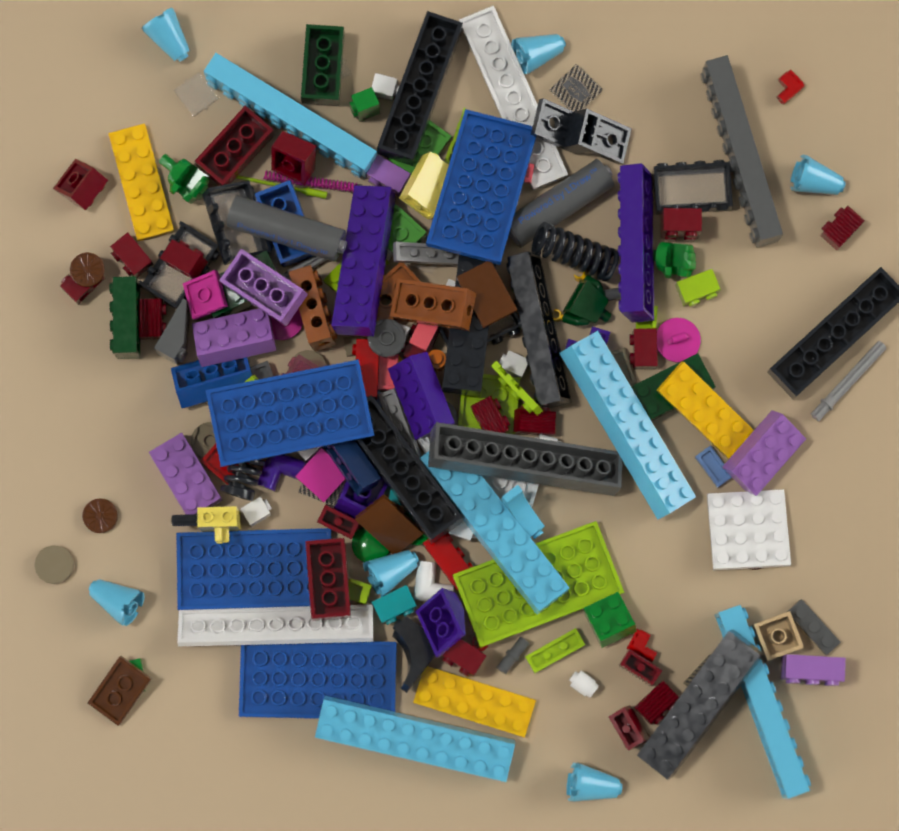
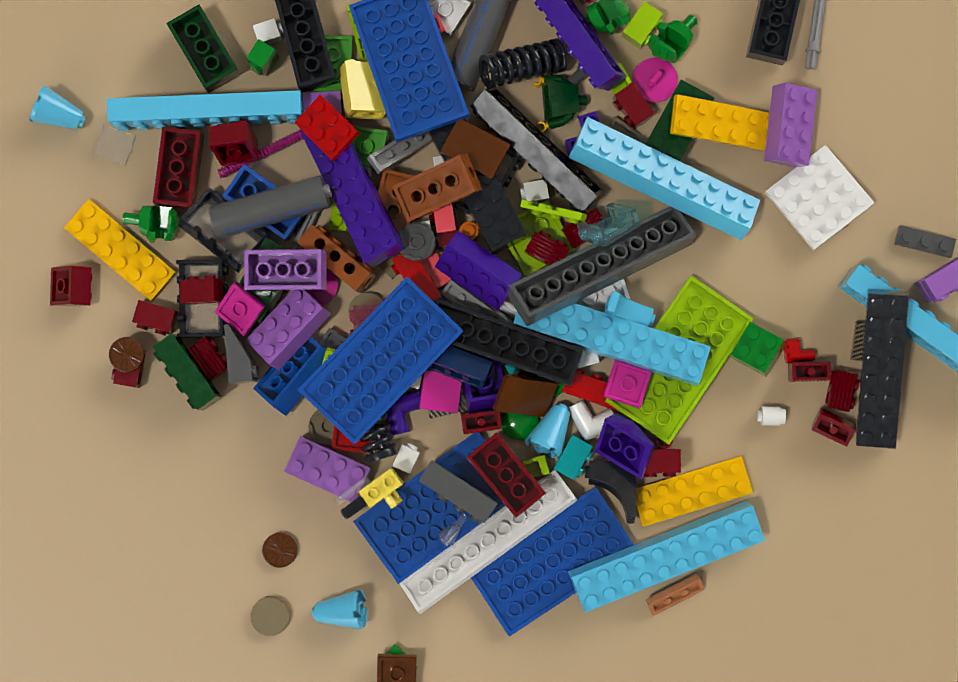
camera: 30 degrees left, 5 degrees up
(191, 505) = (352, 491): none -> clear tile
(248, 597) = (450, 533): none -> clear cone
(279, 565) = (458, 491): none -> dark grey brick
(307, 191) = (263, 164): lime piece -> none
(377, 196) = (327, 127): none -> red plate
(400, 777) = (674, 594): none -> nougat plate
(480, 573) = (627, 384): none -> dark pink tile
(512, 655) = (697, 432): dark grey pin -> none
(555, 650) = (729, 404): lime plate -> none
(566, 435) = (619, 222): none -> clear light blue panel
(591, 784) = (833, 494): medium azure cone -> none
(713, 466) = (754, 165): medium blue tile -> none
(714, 316) = (672, 39): none -> green piece
(777, 636) = (903, 268): tan brick -> none

